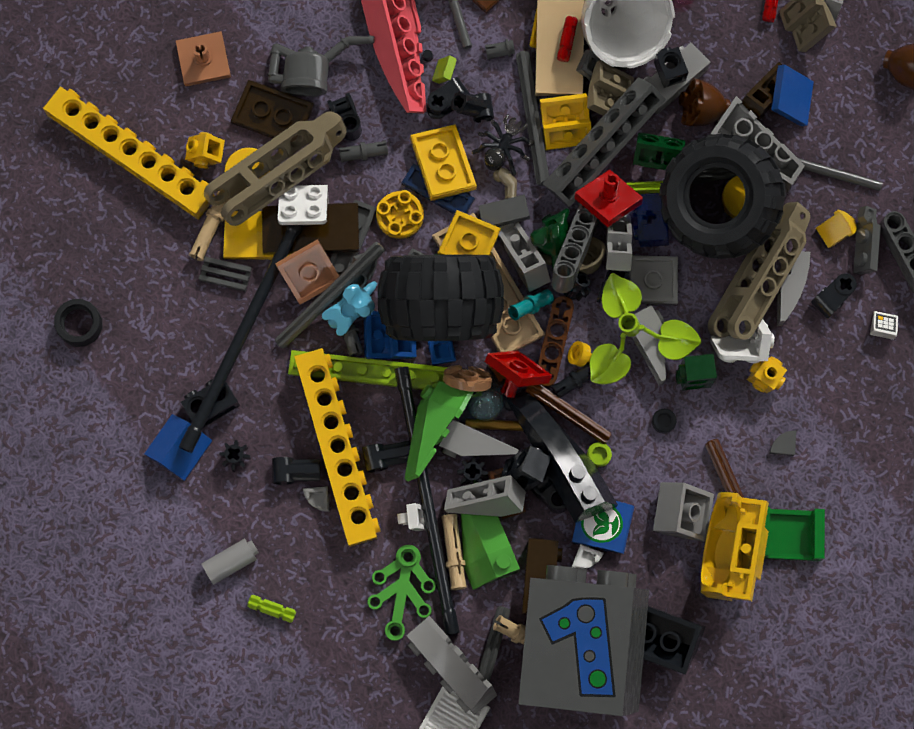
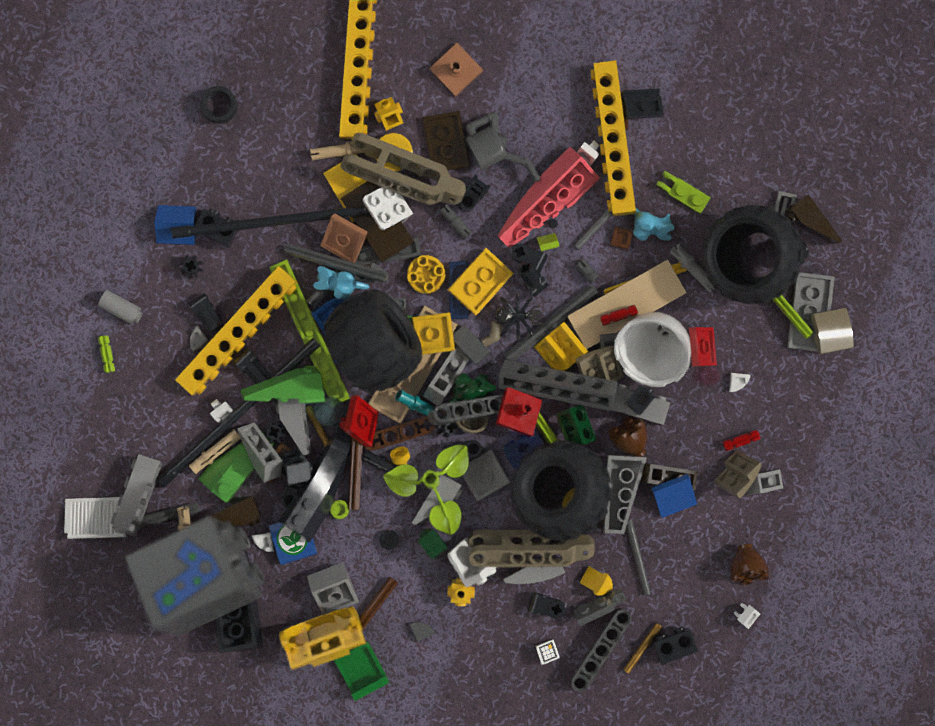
camera: 60 degrees right, 10 degrees up
(245, 278) = (308, 166): dark grey tile -> none
(403, 588) = (171, 432): bright green plant -> none
(470, 380) = (333, 391): medium nougat tile -> none
(619, 245) = (489, 439): light grey slope -> none

